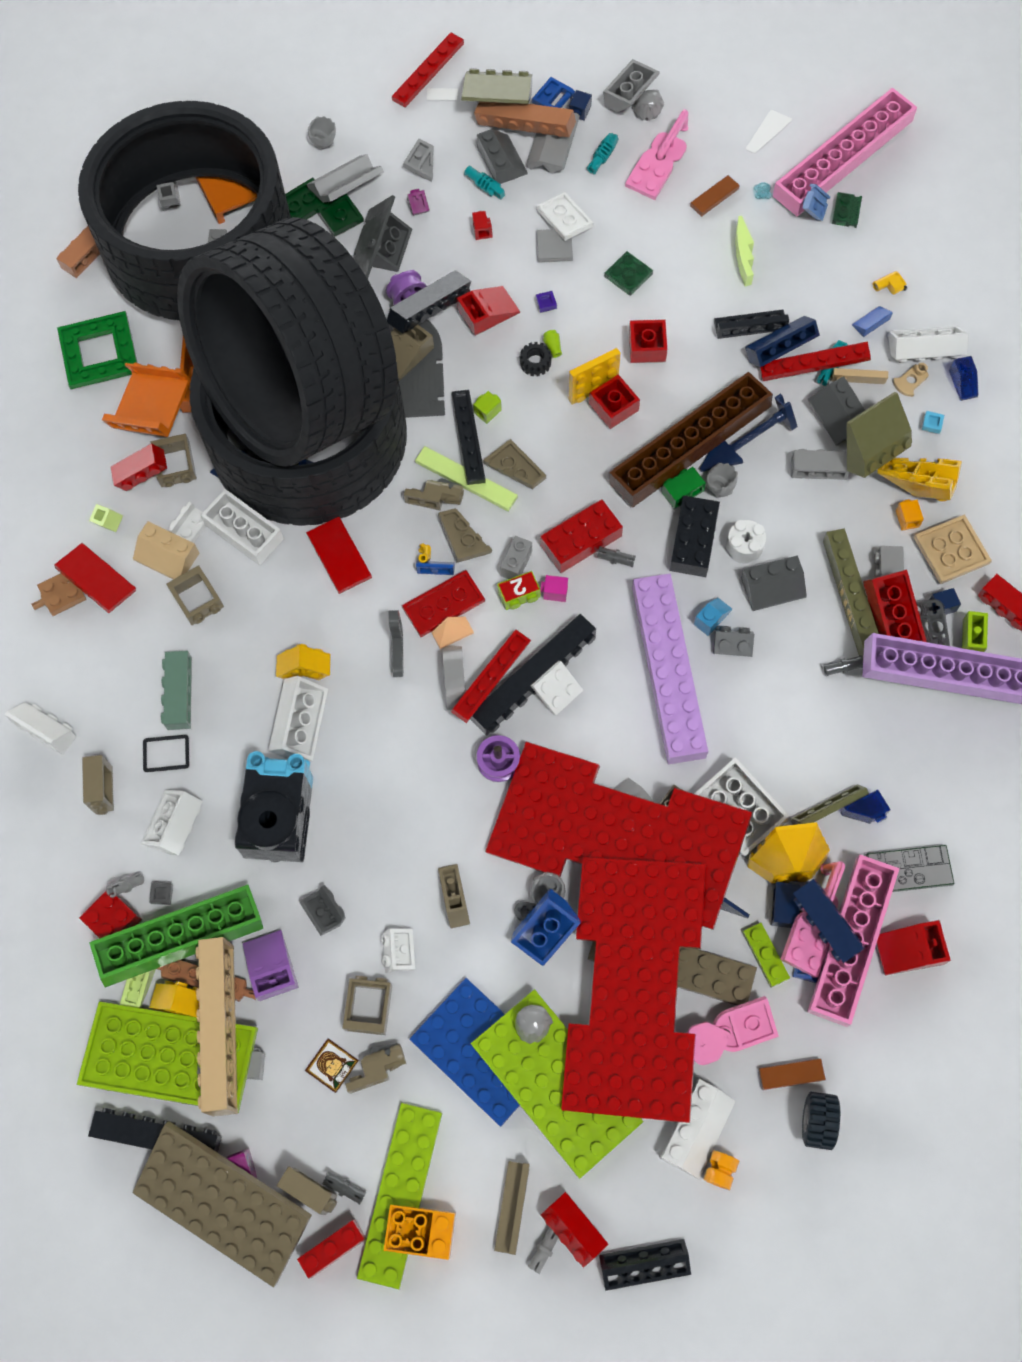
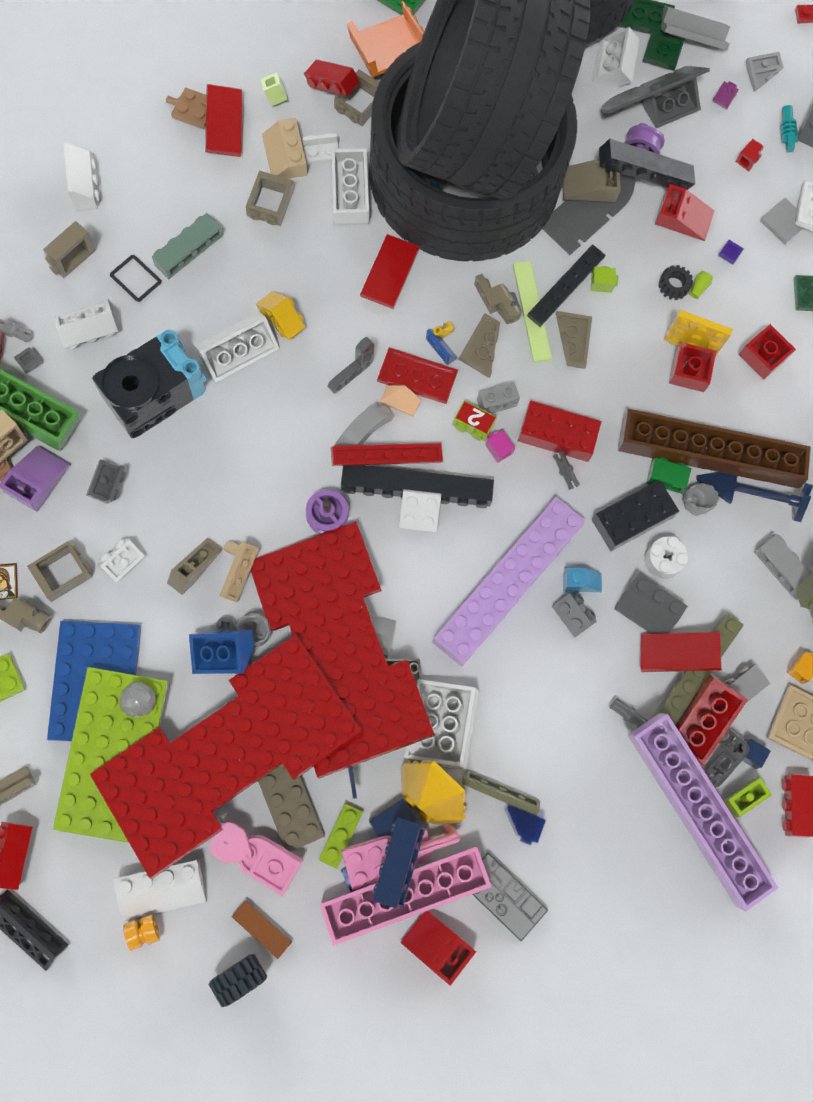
camera: 35 degrees right, 5 degrees up
(481, 848) = (239, 570): none -> tan piece
(828, 589) = (681, 652): none -> red tile

